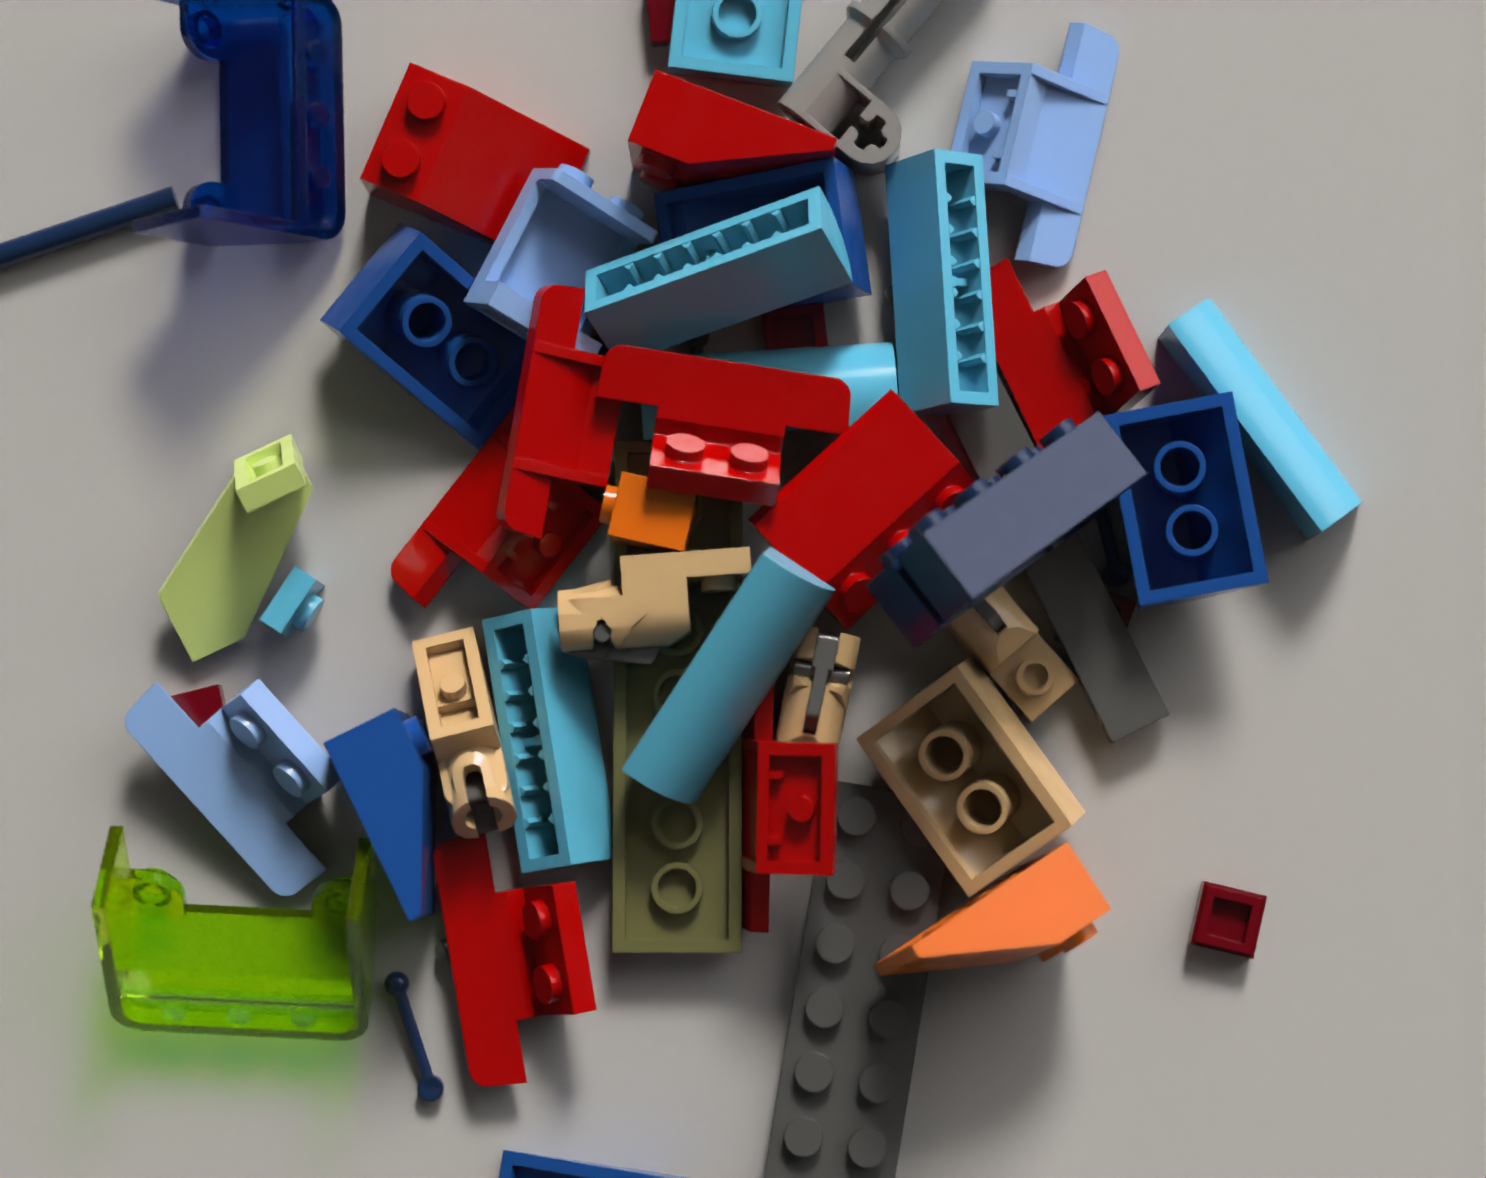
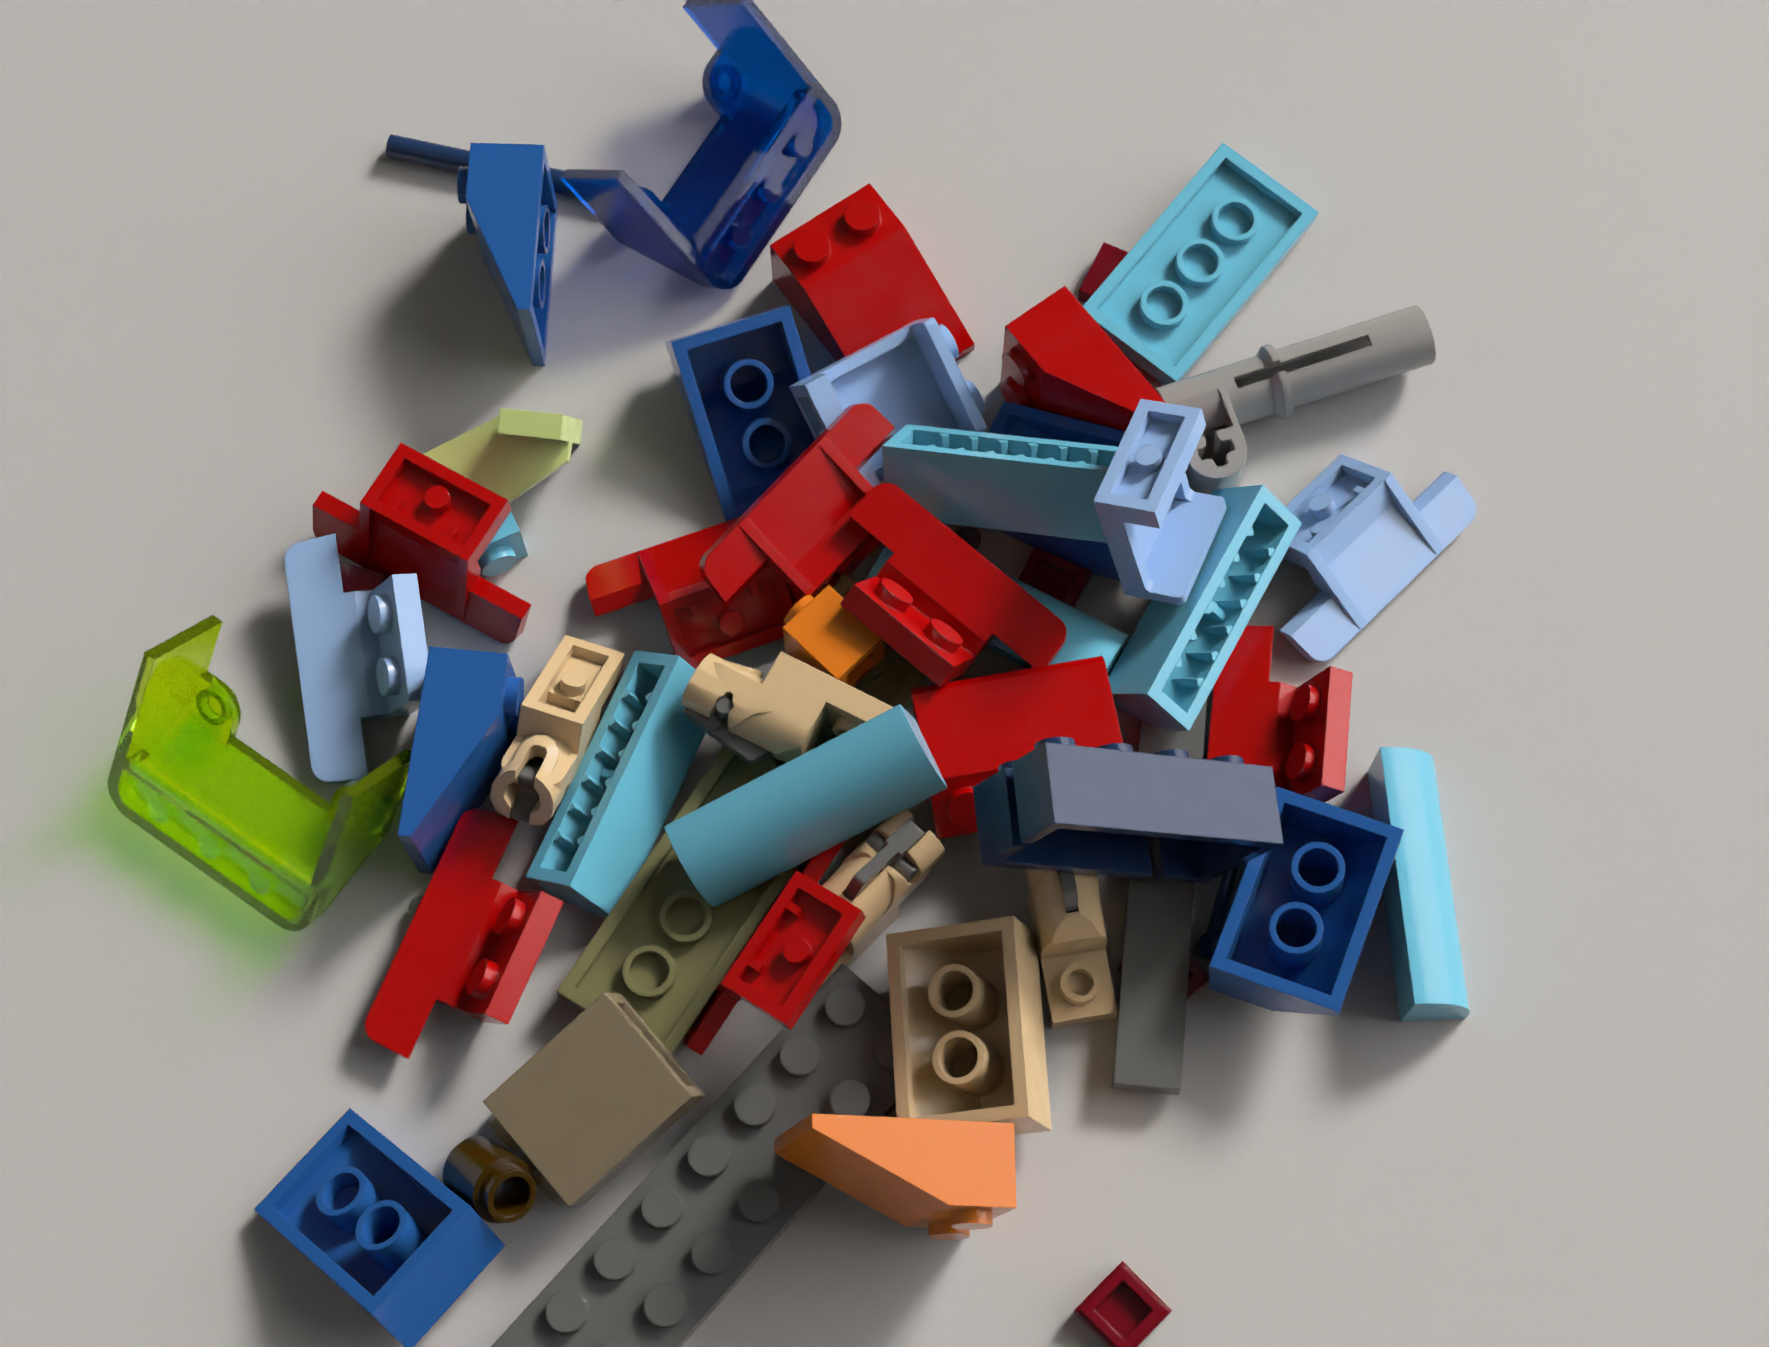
camera: 30 degrees right, 15 degrees down
(105, 286) = (515, 224): none -> blue slope
(236, 630) = (431, 525): none -> red plate
(430, 1086) = (326, 1014): dark blue hinge -> none
(664, 1140) = (490, 1180): none -> dark brown brick
(705, 1025) = (592, 1100): none -> dark tan brick
(865, 232) = (1148, 511): none -> light blue panel

